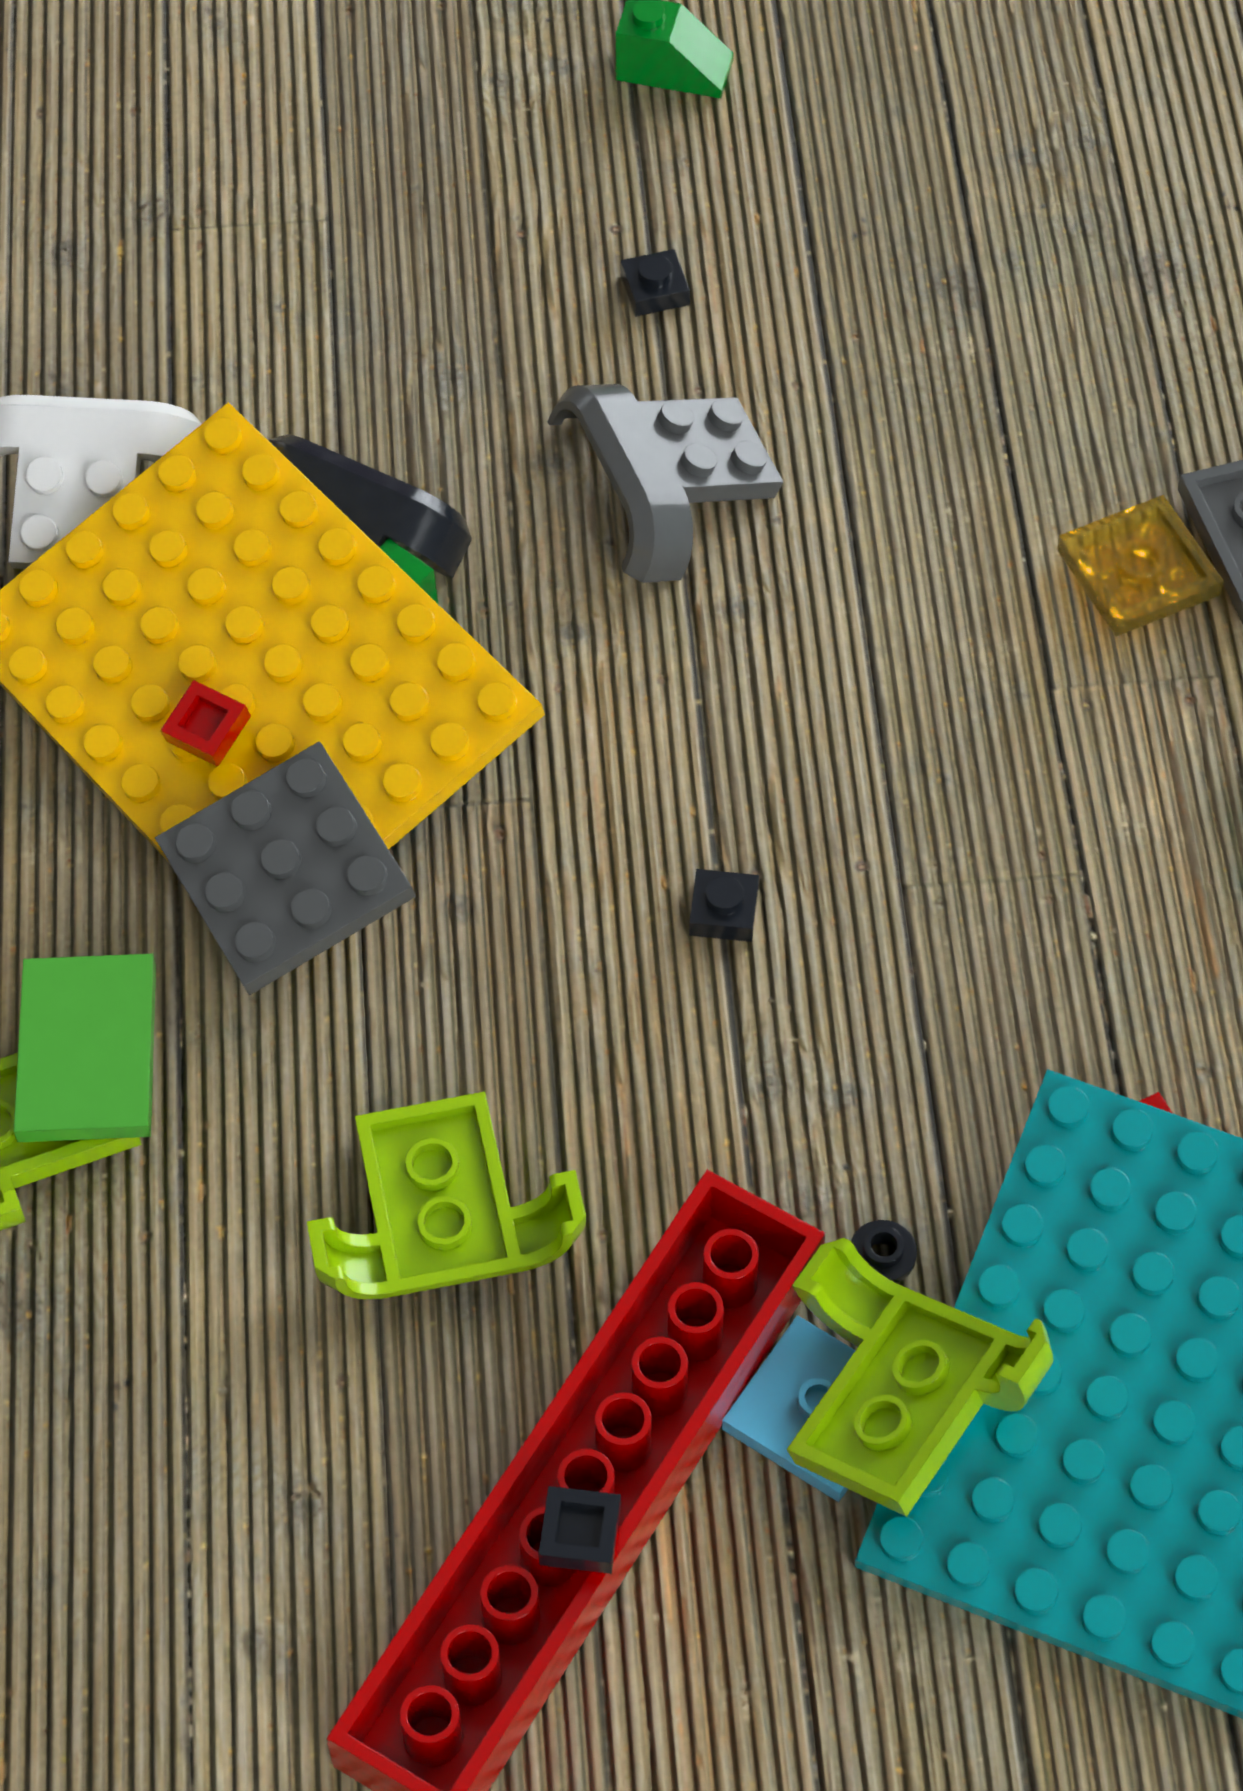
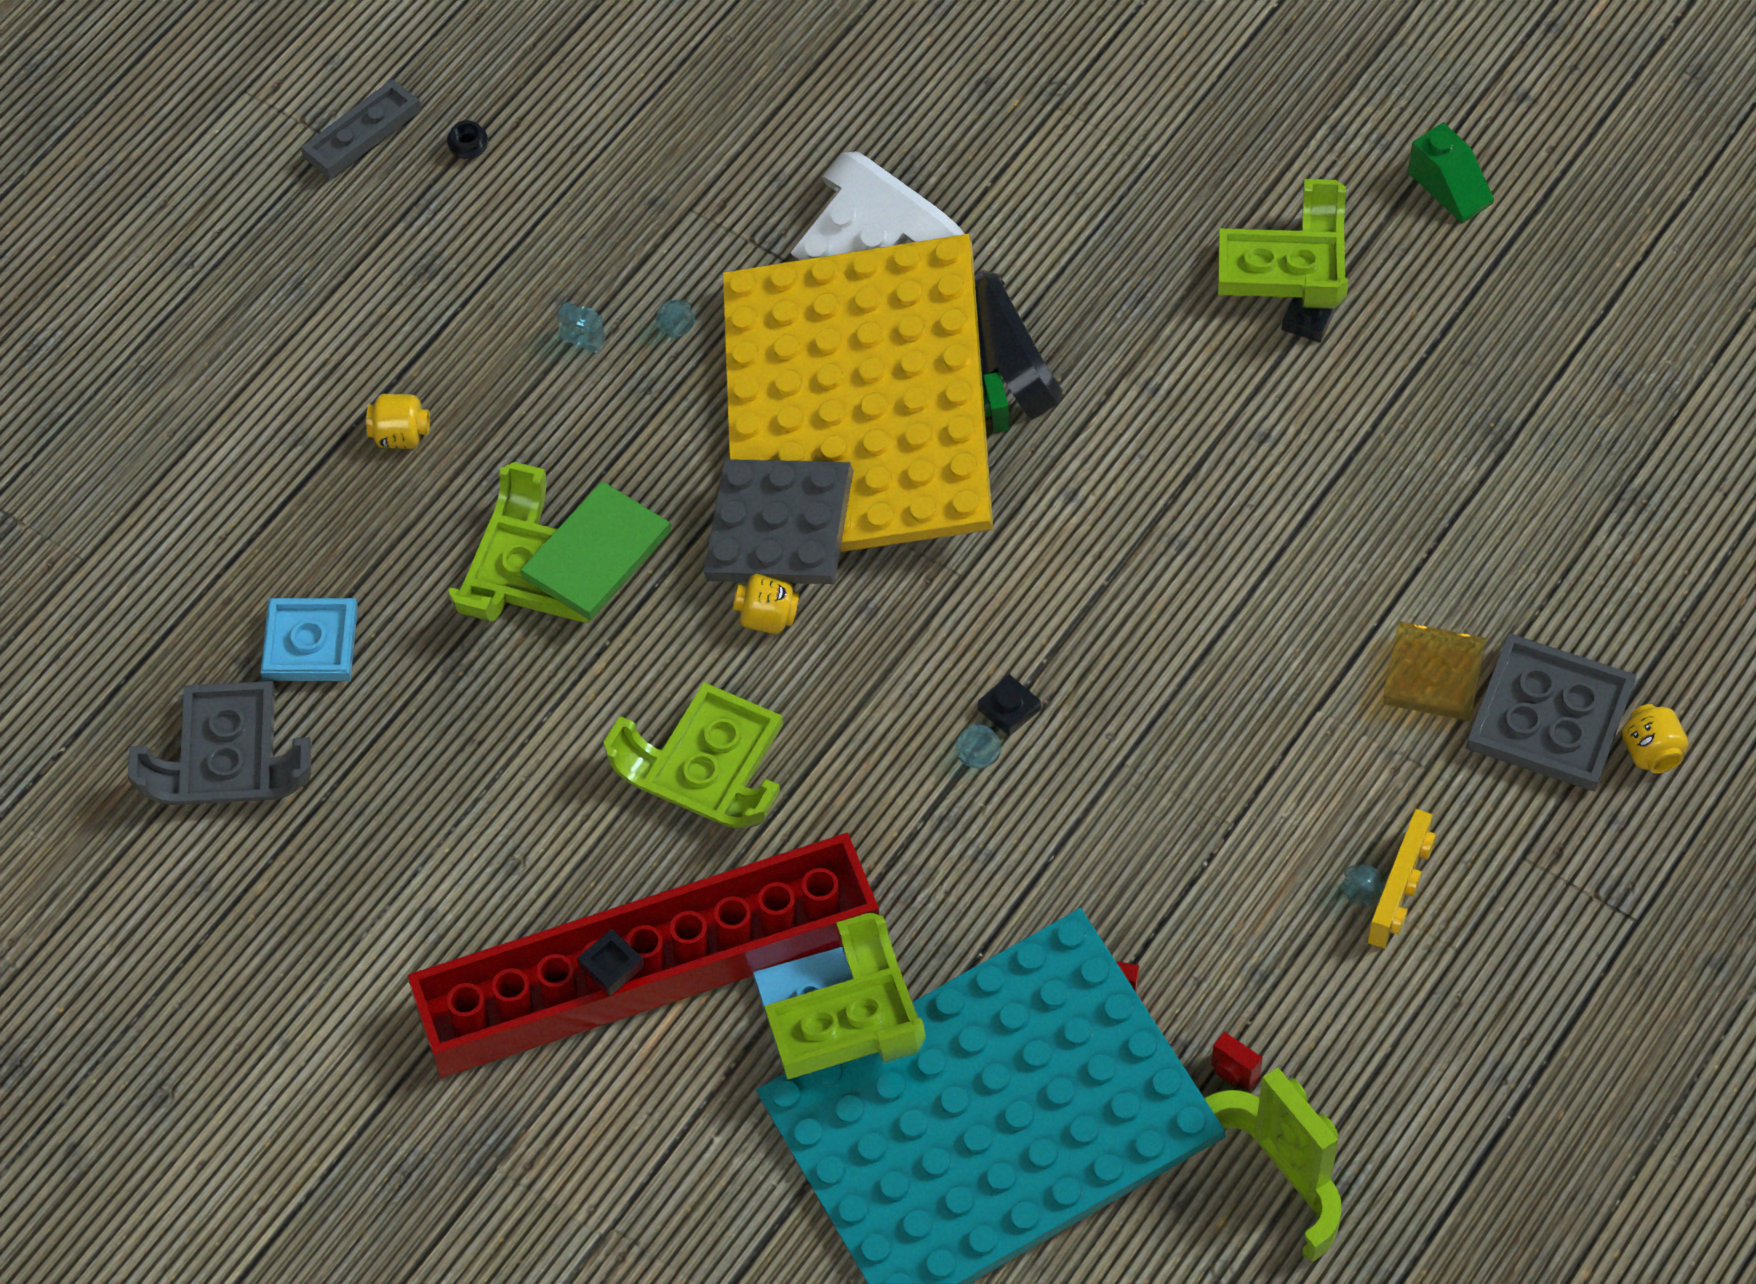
camera: 40 degrees right, 0 degrees up
(205, 723) = (800, 412): red plate -> none
(346, 975) = (766, 604): none -> yellow head
(594, 232) = (1291, 262): none -> lime piece
(664, 459) = (1207, 425): dark grey piece -> none
(735, 974) = (978, 746): none -> clear light blue plate
(901, 1262) = (918, 959): black plate -> none

